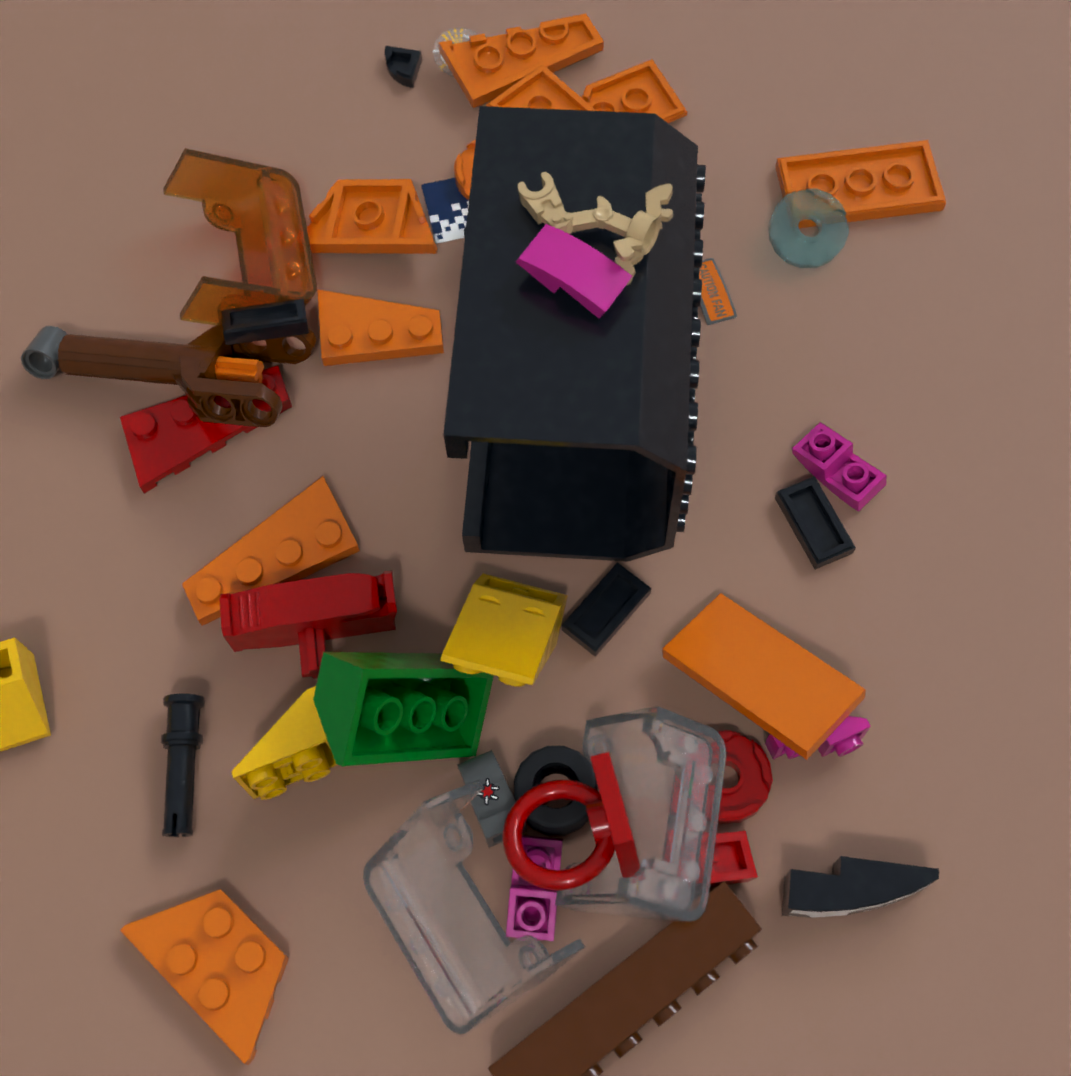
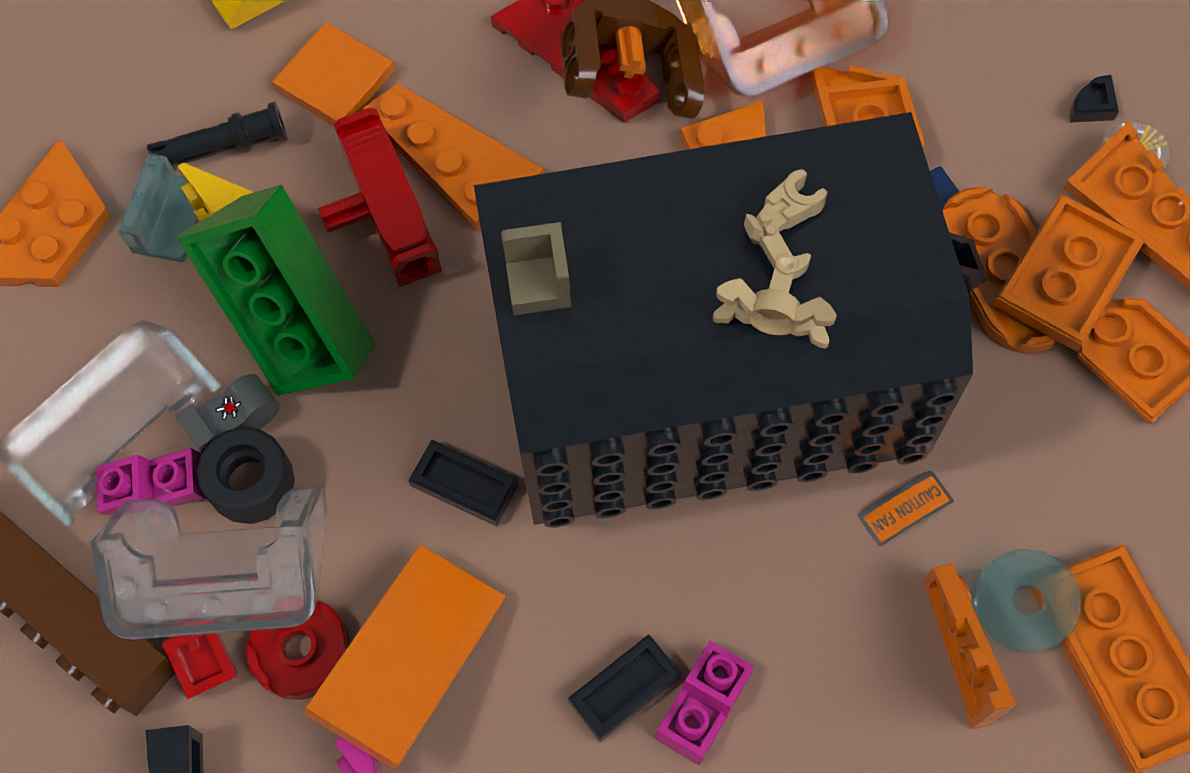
camera: 75 degrees right, 0 degrees up
(146, 643) = (333, 74): none -> orange tile
(246, 828) = (157, 212): none -> clear light blue panel
(264, 322) = (690, 56): black tile -> none
(505, 630) = (388, 373): yellow slope -> none
(557, 388) = (536, 268): none -> dark tan panel
(576, 267) = (701, 252): dark pink slope -> none
(607, 822) = (198, 522): red tile -> none
(845, 272) = (968, 650): none -> orange wing

